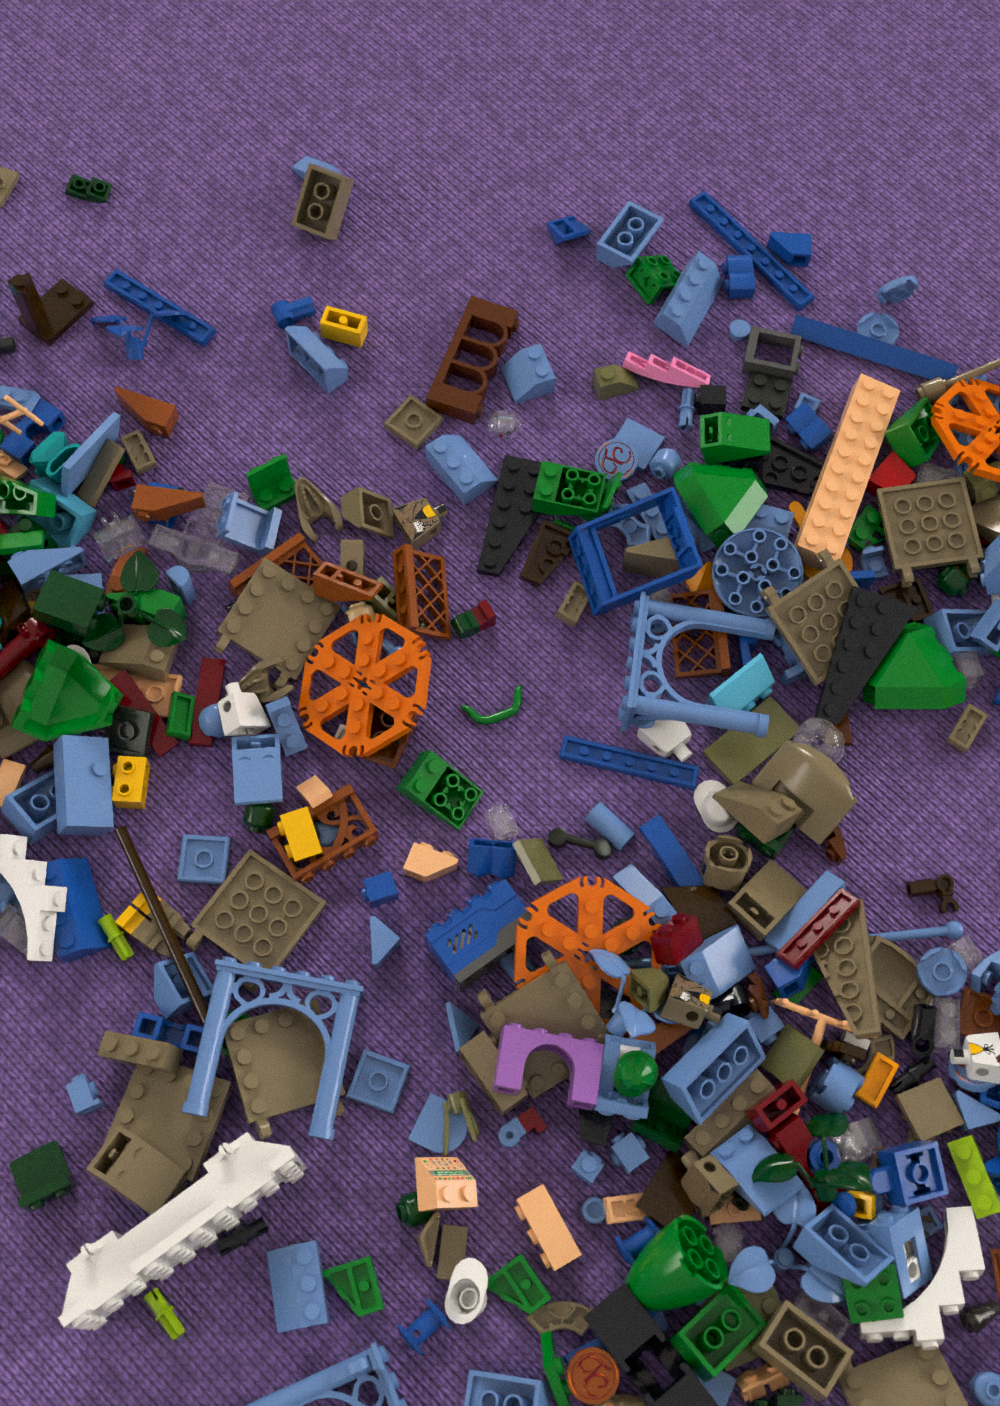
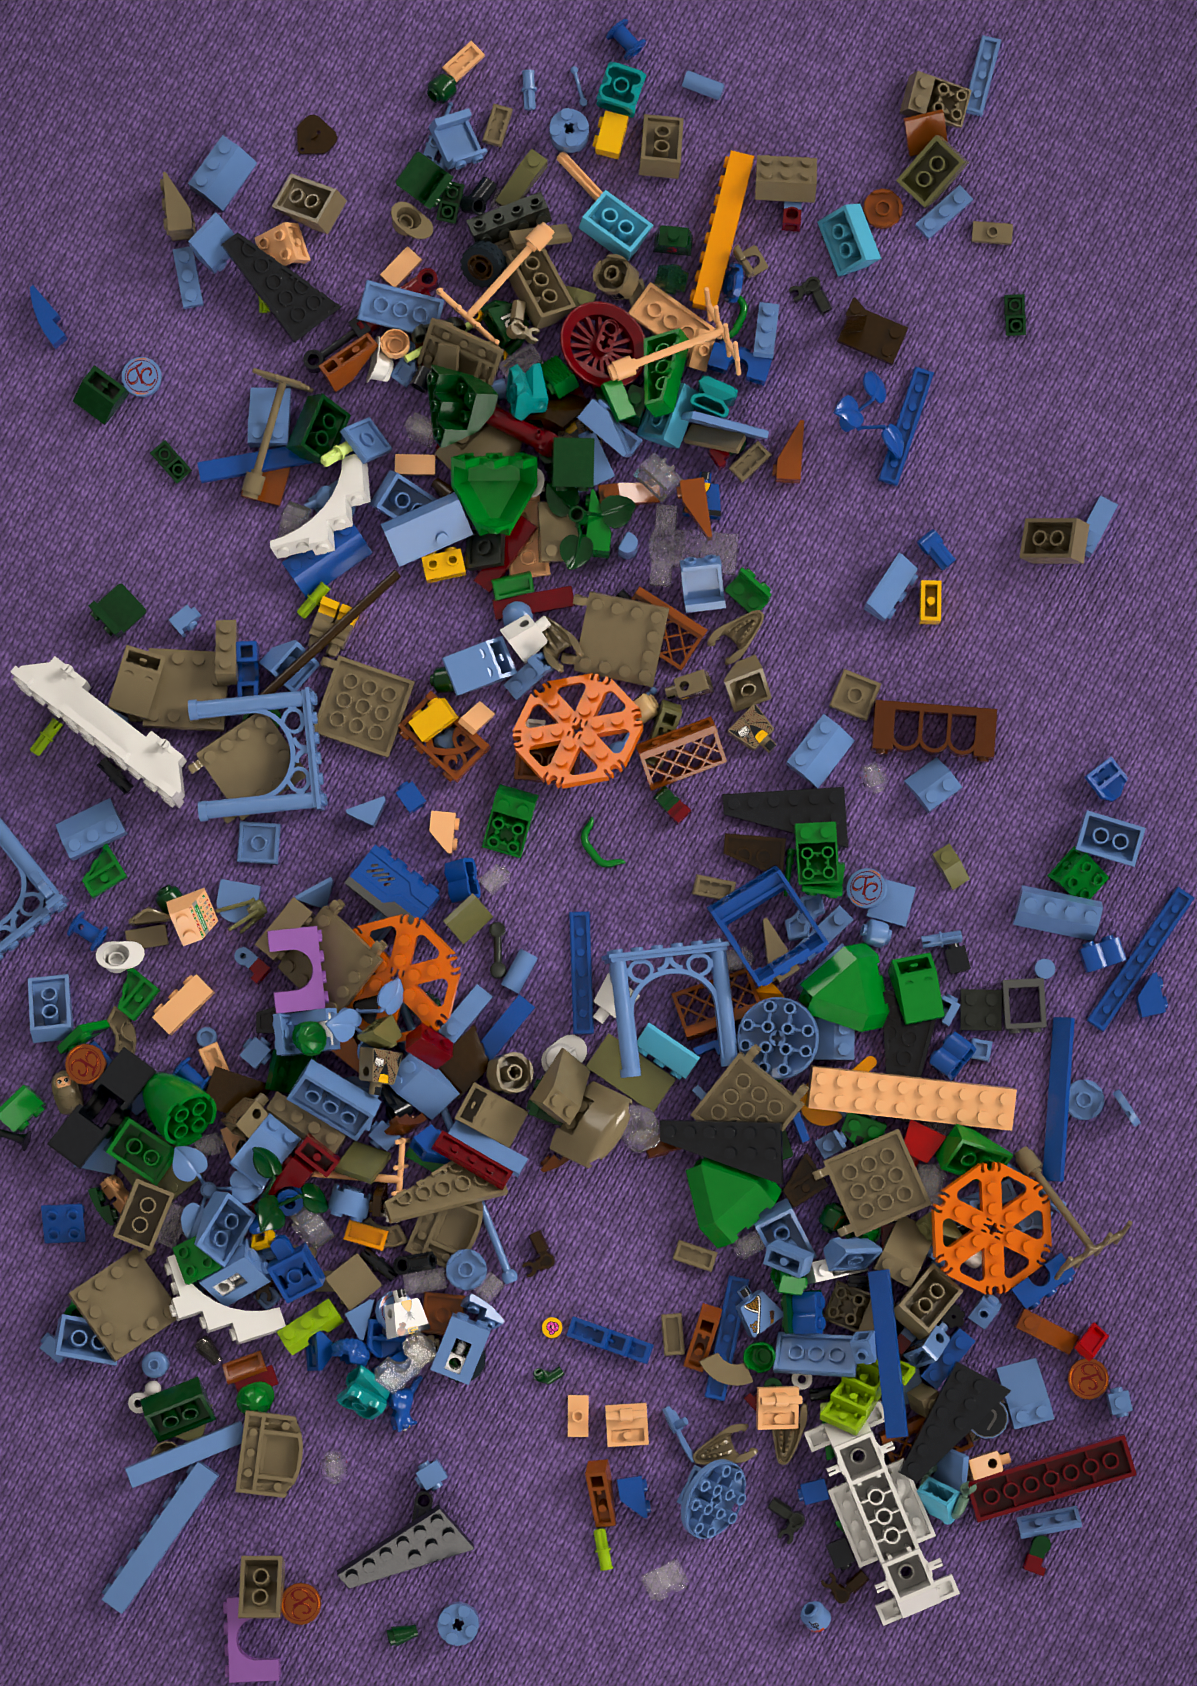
camera: 80 degrees right, 15 degrees up
(204, 859) = (397, 647): medium blue tile -> none
(343, 585) = (663, 686): dark orange slope -> none
(587, 1166) = (237, 1023): medium blue brick -> none
(675, 372) = (974, 911): bright pink slope -> none

